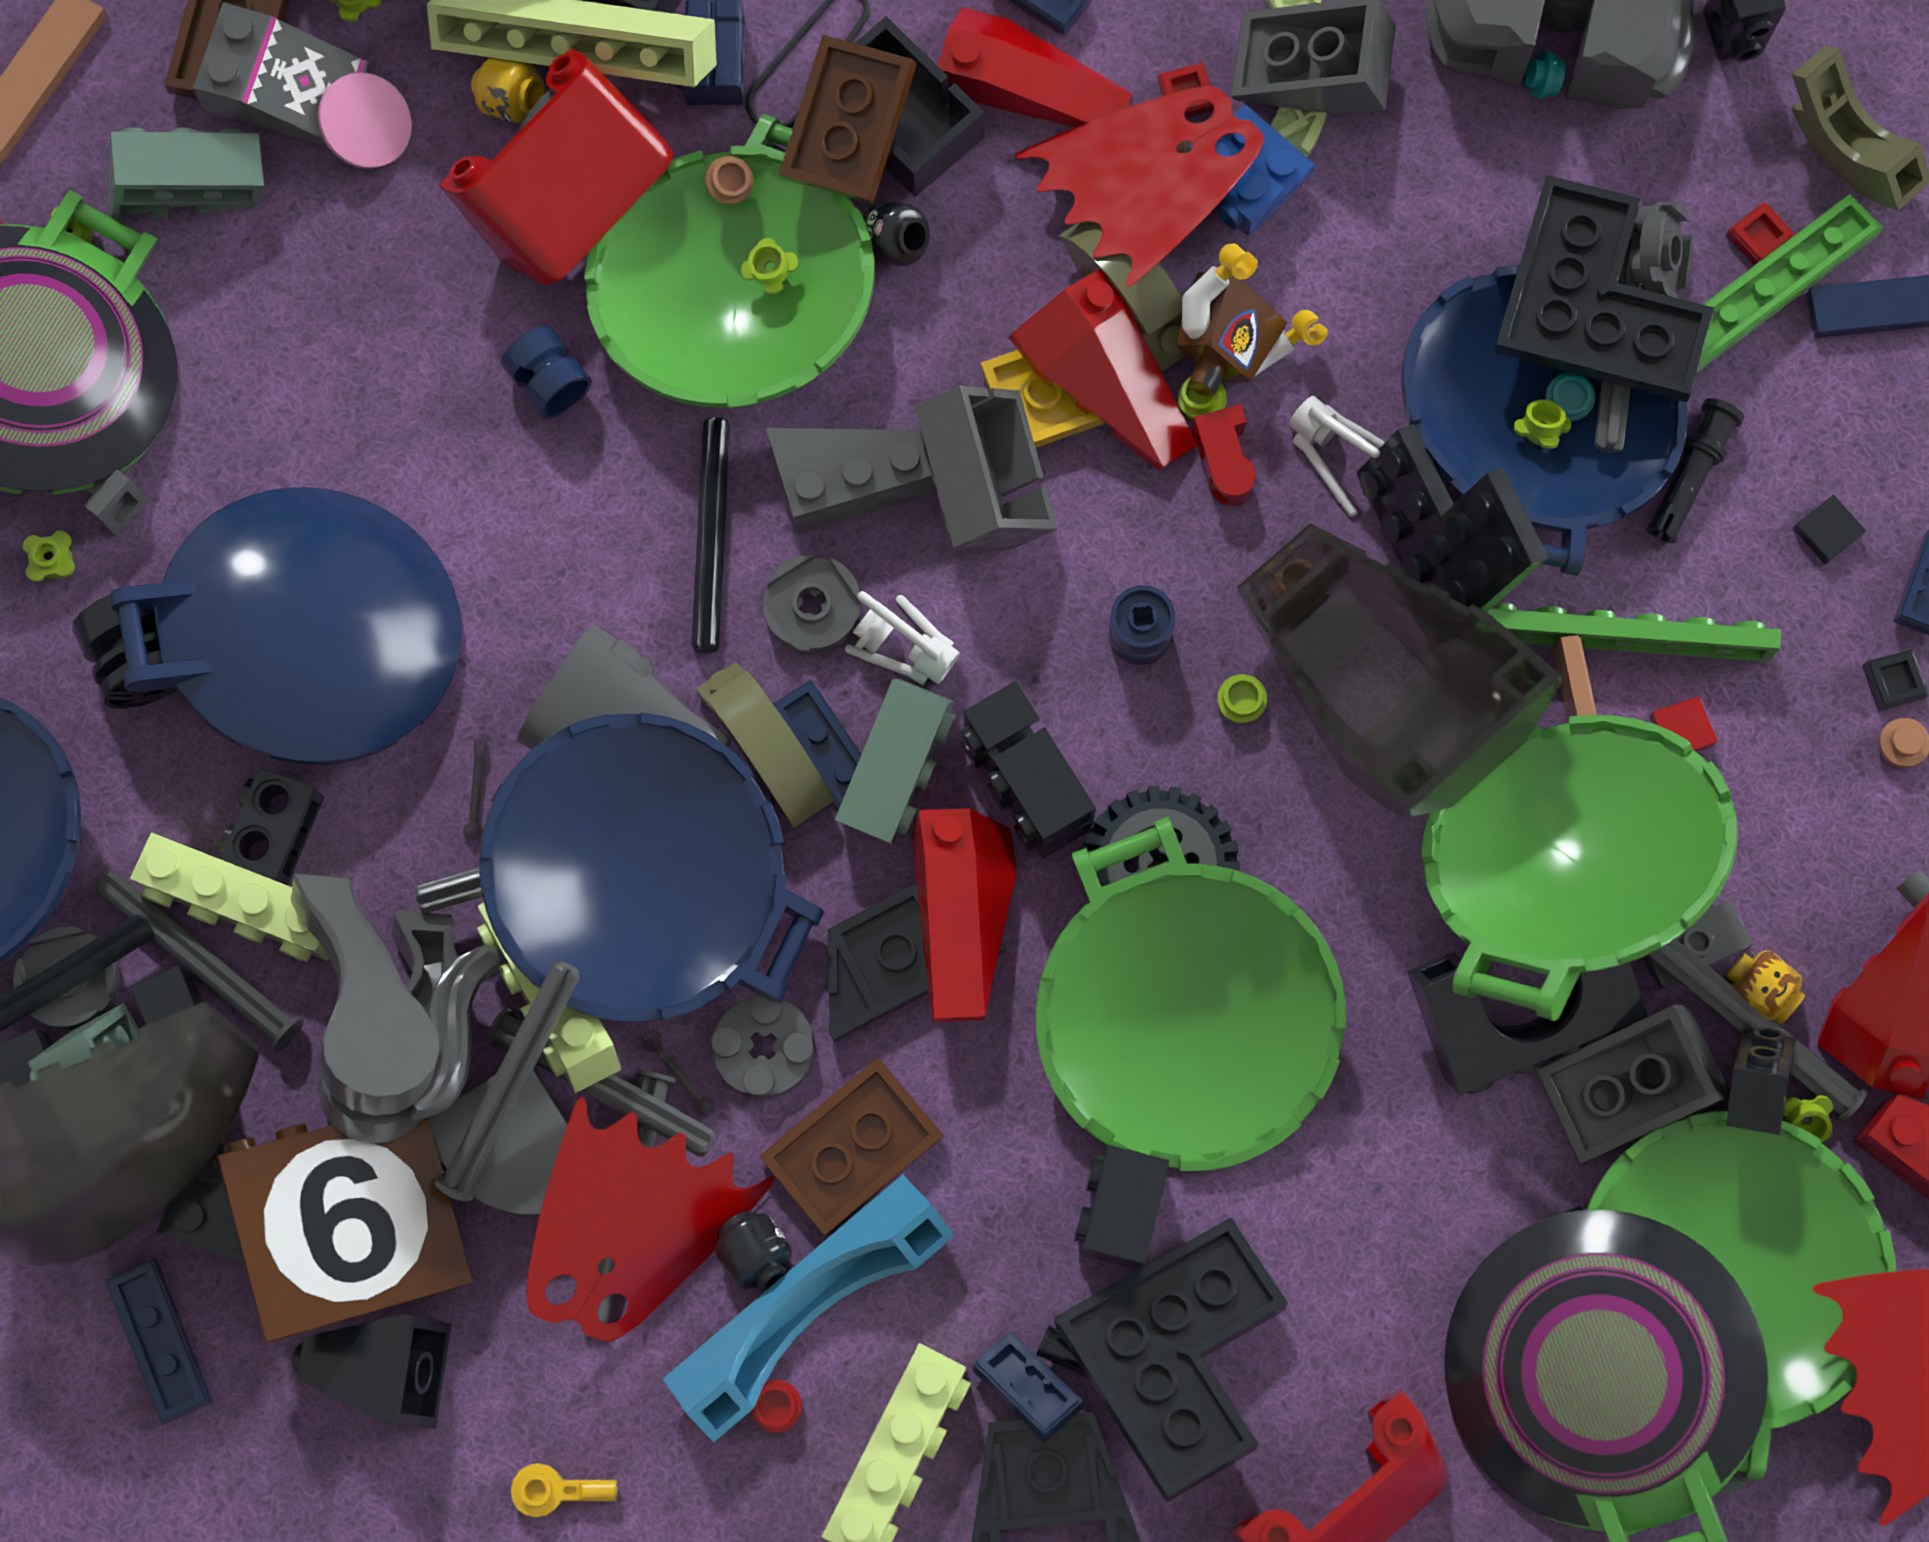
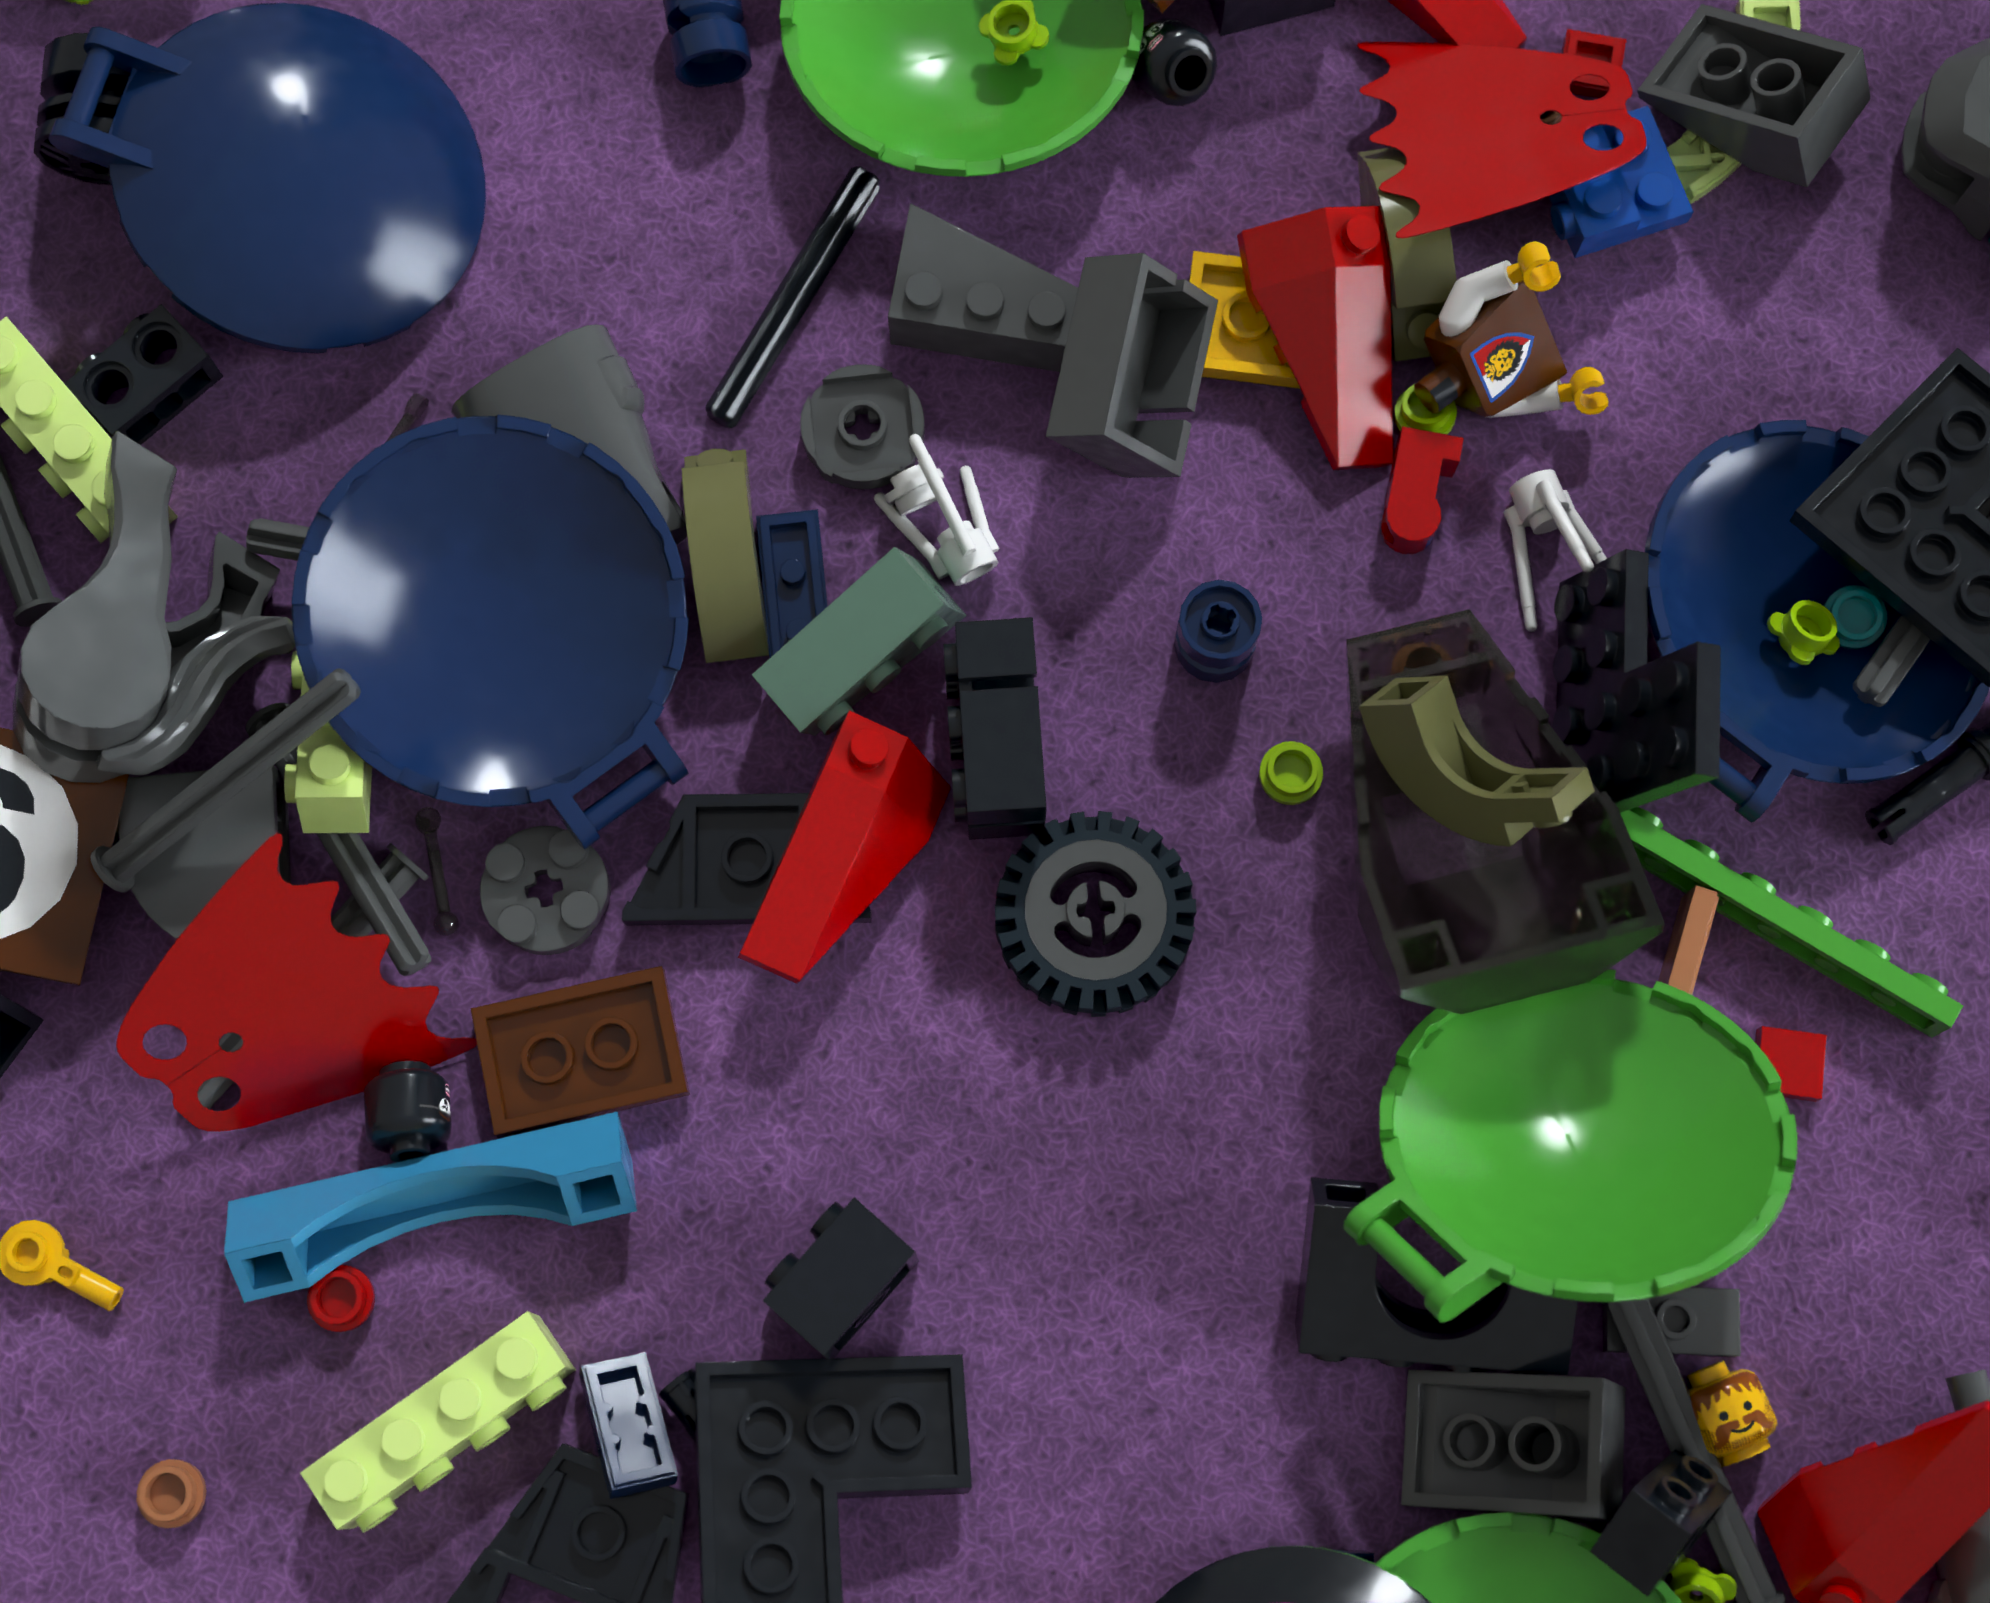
camera: 25 degrees right, 0 degrees up
(1188, 1009) = (1035, 1091): bright green dish -> none
(1366, 647) = (1453, 777): none -> olive arch

